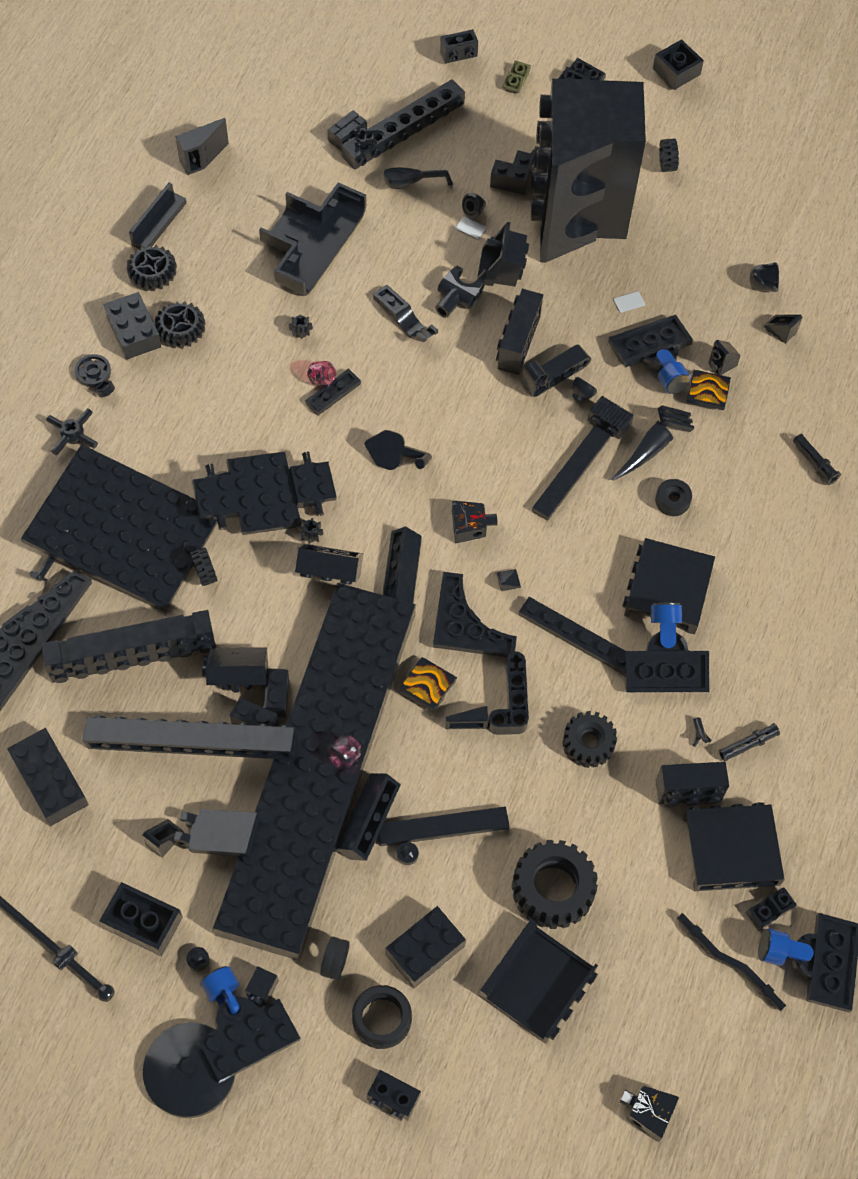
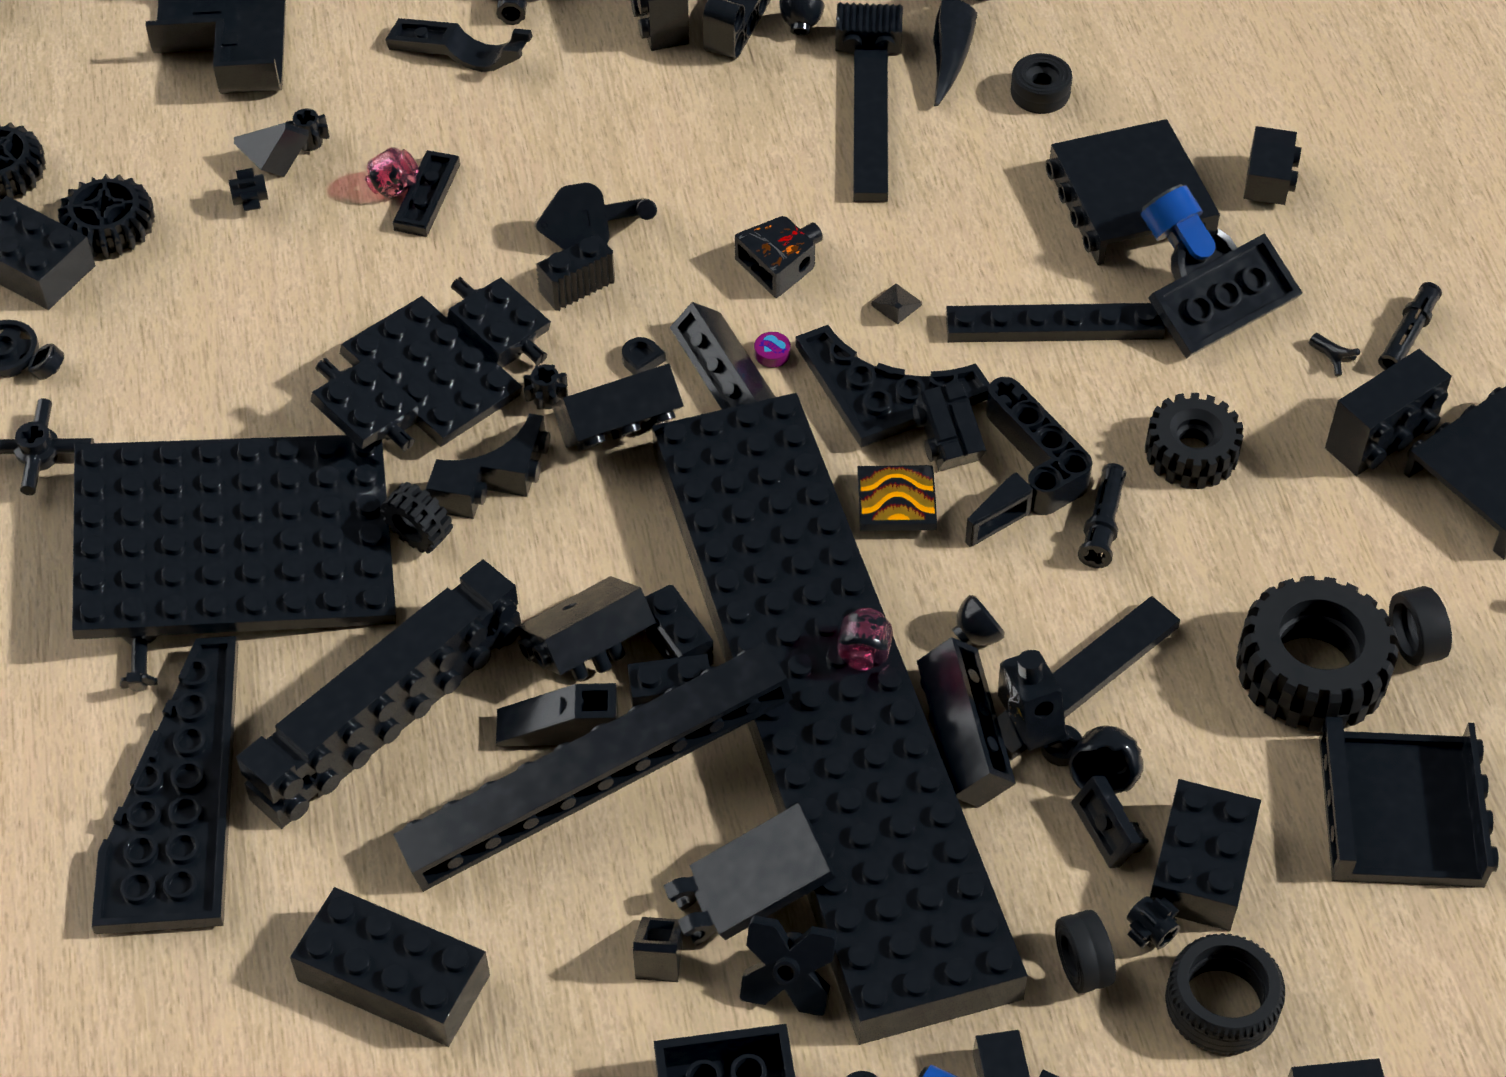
camera: 30 degrees left, 10 degrees down
(197, 703) = (557, 715): none -> black slope
(206, 881) = (788, 965): none -> black plant
(251, 345) = (248, 189): none -> black gear
(266, 565) = (509, 470): none -> black arch
(274, 330) = (273, 147): none -> black slope
(367, 477) = (576, 272): none -> black brick
(368, 538) = (642, 355): none -> black tile
(377, 963) = (1153, 922): none -> black gear
(394, 912) = (1107, 822): none -> black hinge
(403, 821) = (1028, 684): none -> black torso
(414, 771) = (976, 624): none -> black brick
(416, 874) = (1107, 753): none -> black hair
(430, 570) = (772, 349): none -> magenta tile
(476, 662) = (949, 426): none -> black brick
(509, 757) = (1101, 527): none -> black pin
(614, 901) = (1420, 625): none -> black tyre
(750, 612) = (1271, 165): none -> black brick

